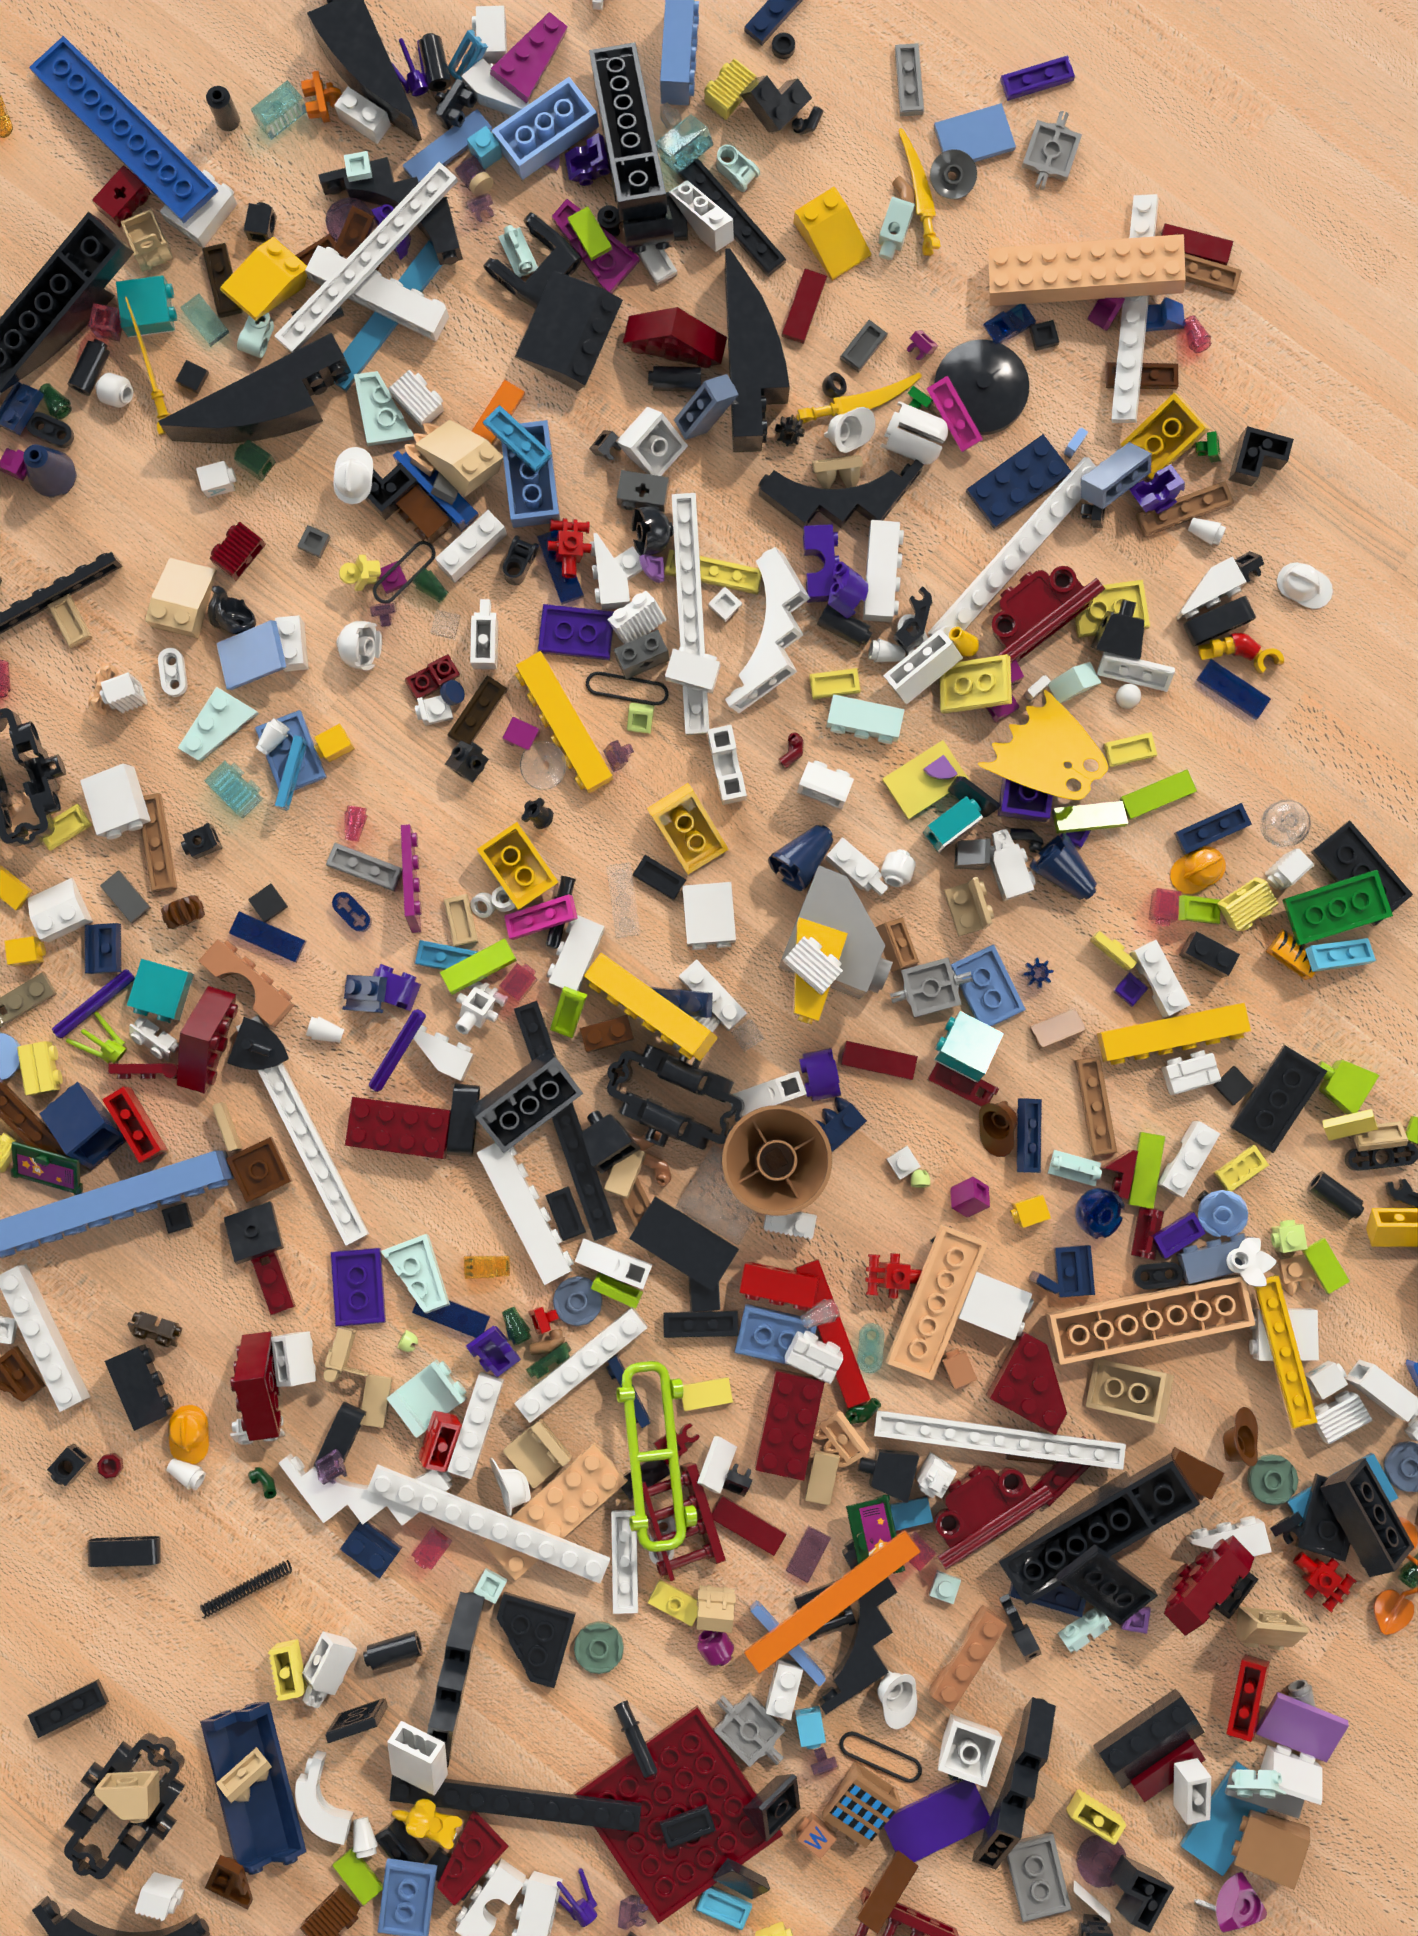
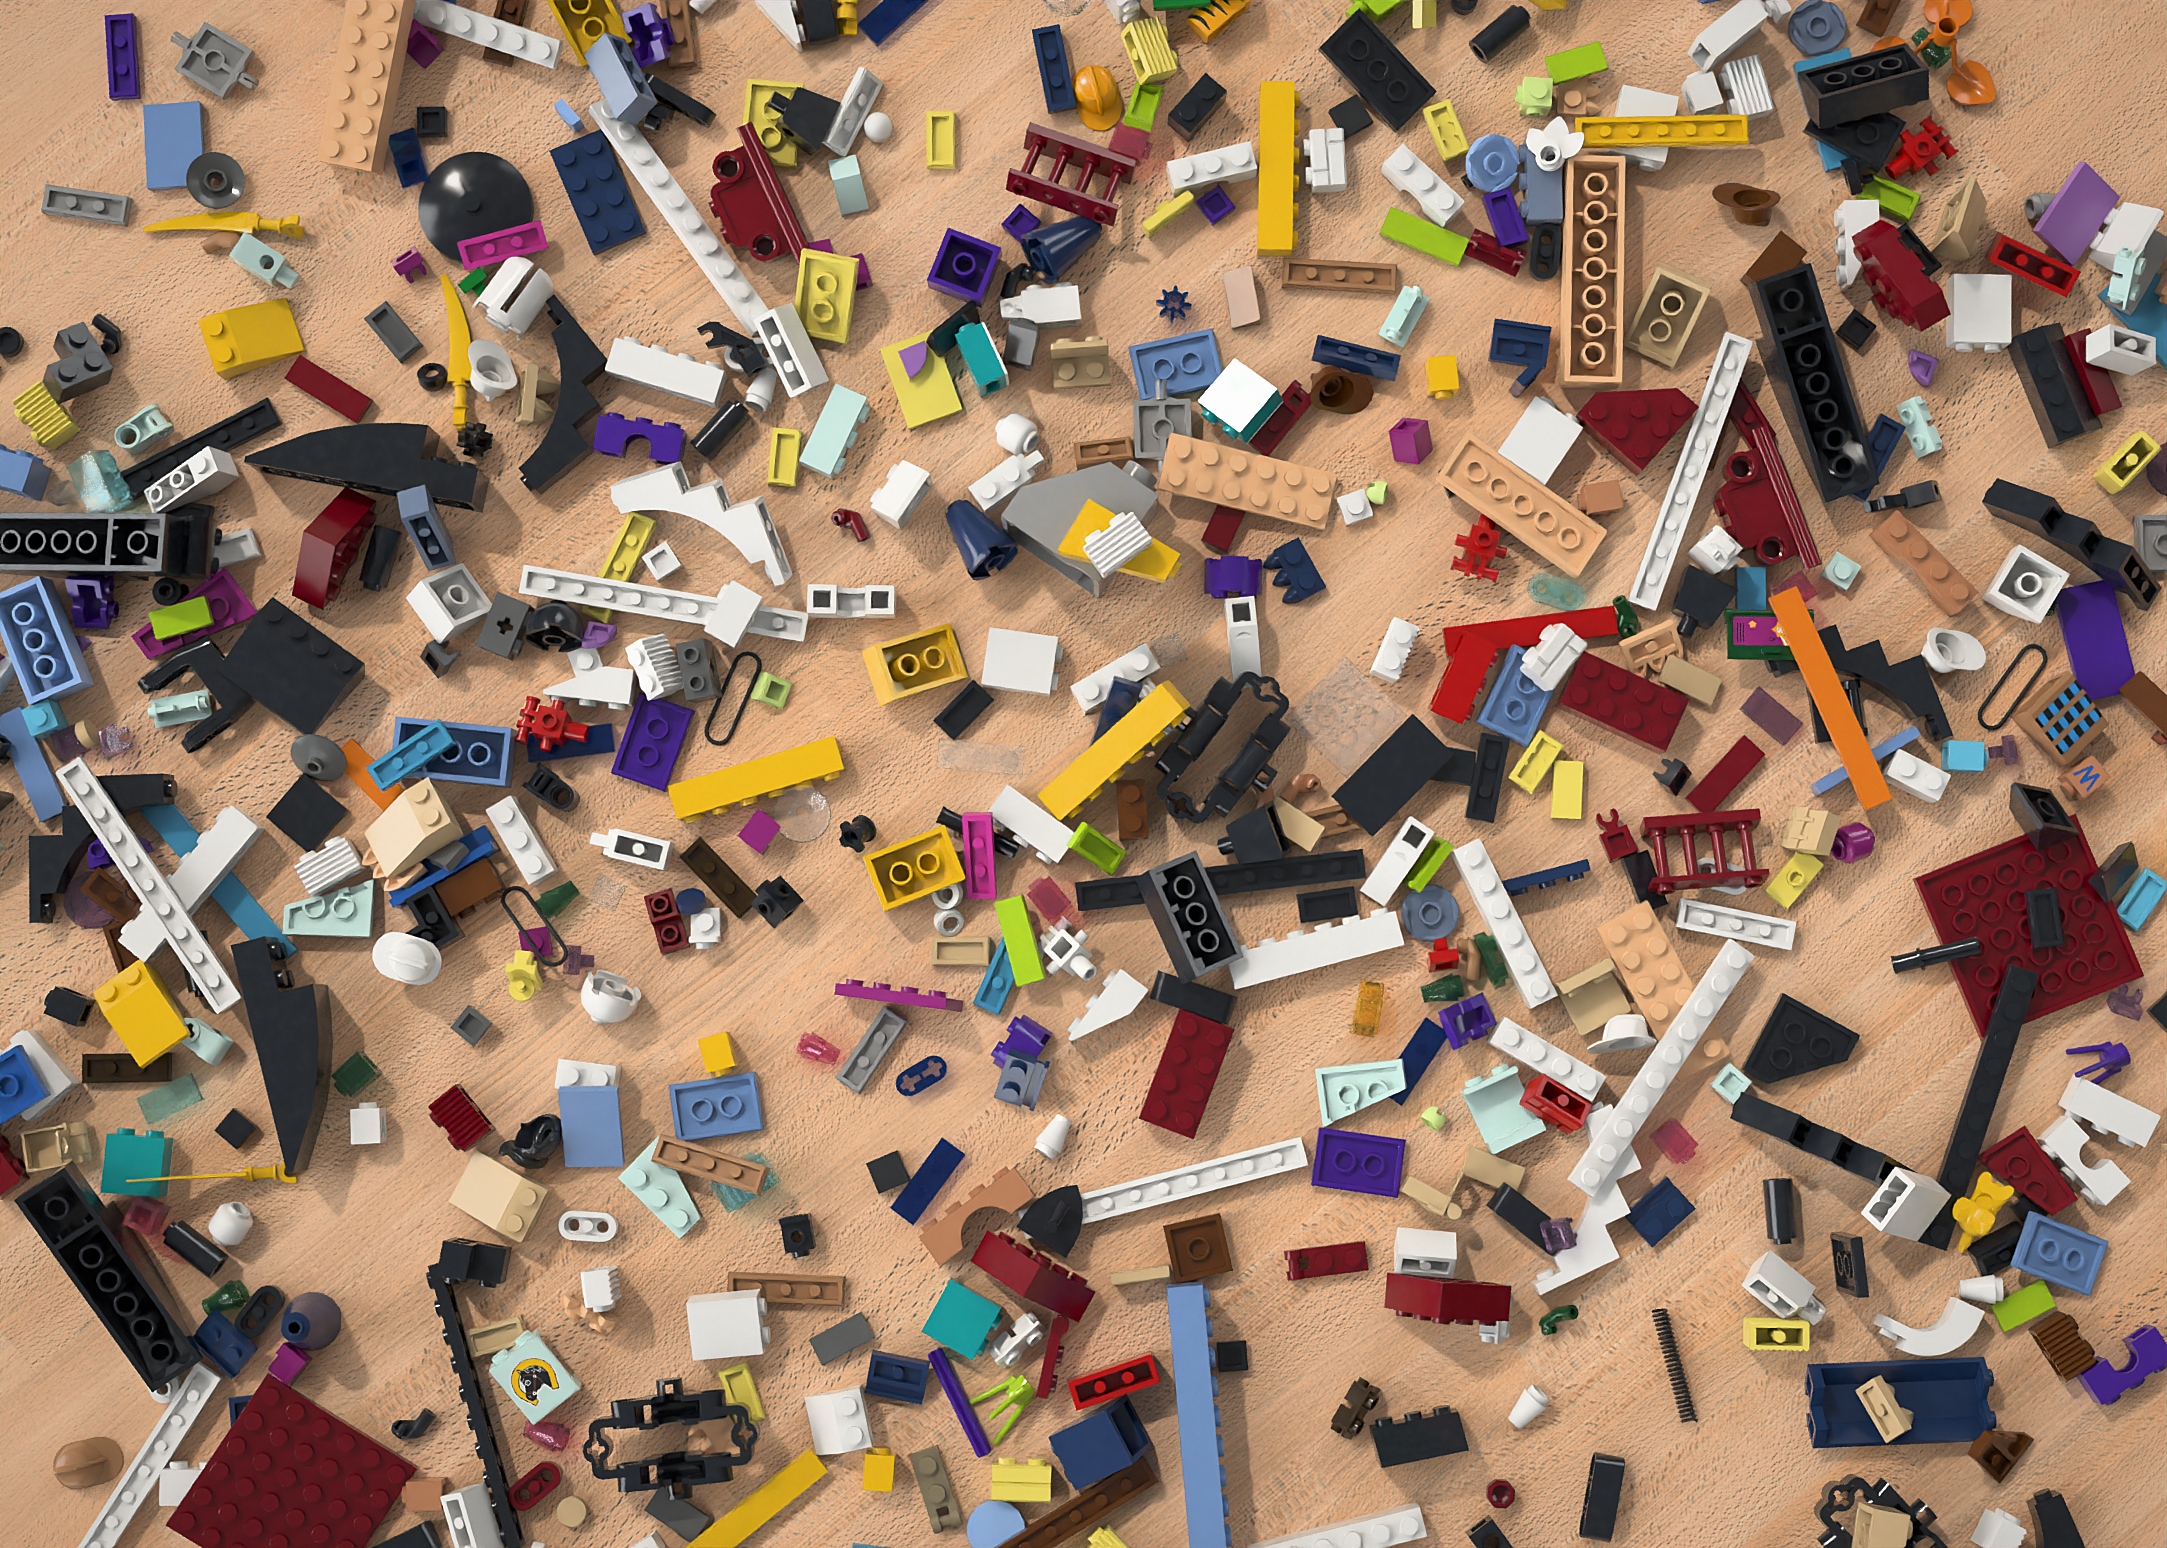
camera: 70 degrees left, 0 degrees up
(36, 1166) = (1149, 1483): door -> none
(41, 656) = (533, 1376): none -> light aqua panel
(125, 586) = (472, 1259): none -> black brick
(182, 912) = (877, 1272): reddish brown gear -> none
(189, 1434) = (1484, 1395): light orange piece -> none
(240, 757) = (710, 1164): none -> medium nougat tile
(253, 1232) = (1269, 1269): black plate -> none
(272, 736) = (694, 1122): white cone -> none
(291, 773) = (743, 1109): dark azure tile -> none
(358, 166) = (33, 871): light aqua plate -> none
(397, 1050) = (1096, 1055): dark purple axle -> none
(456, 371) = (307, 813): none -> black tile
(502, 368) = (318, 757): none -> dark grey dish
(599, 1647) = (1825, 975): sand green tile -> none
(617, 755) = (810, 725): tile -> none
(684, 1515) = (1699, 842): lime bar -> none
(717, 1464) = (1650, 794): white tile -> none
(723, 1362) = (1535, 761): none -> light yellow plate
(749, 1729) = (1952, 825): light grey plate -> none
(801, 1144) = (1318, 612): medium nougat cone -> none
(822, 1313) = (1505, 635): clear cone -> none
(848, 590) = (682, 414): dark purple cylinder -> none
(903, 1067) = (1246, 481): none -> light nougat plate
(964, 642) = (772, 296): yellow cone -> none
(1037, 688) = (845, 227): white tile -> none
(1042, 747) = (918, 237): yellow piece -> none
(1089, 817) = (1006, 209): tile -> none
(1099, 1212) = (1460, 299): clear blue cylinder -> none
(1107, 1584) = (1876, 388): black tile -> none
(1109, 529) = (680, 101): none -> black beam
(1125, 1166) = (1414, 258): dark red slope -> none
(1146, 863) = (1078, 153): none -> dark red fence
(1156, 1556) = (1855, 329): none -> black tile
(1158, 794) = (999, 120): lime tile -> none
(1195, 1660) = (1978, 312): none -> white brick
(1272, 1479) = (1799, 180): sand green tile -> none
(1277, 1563) = (1892, 197): none -> lime tile

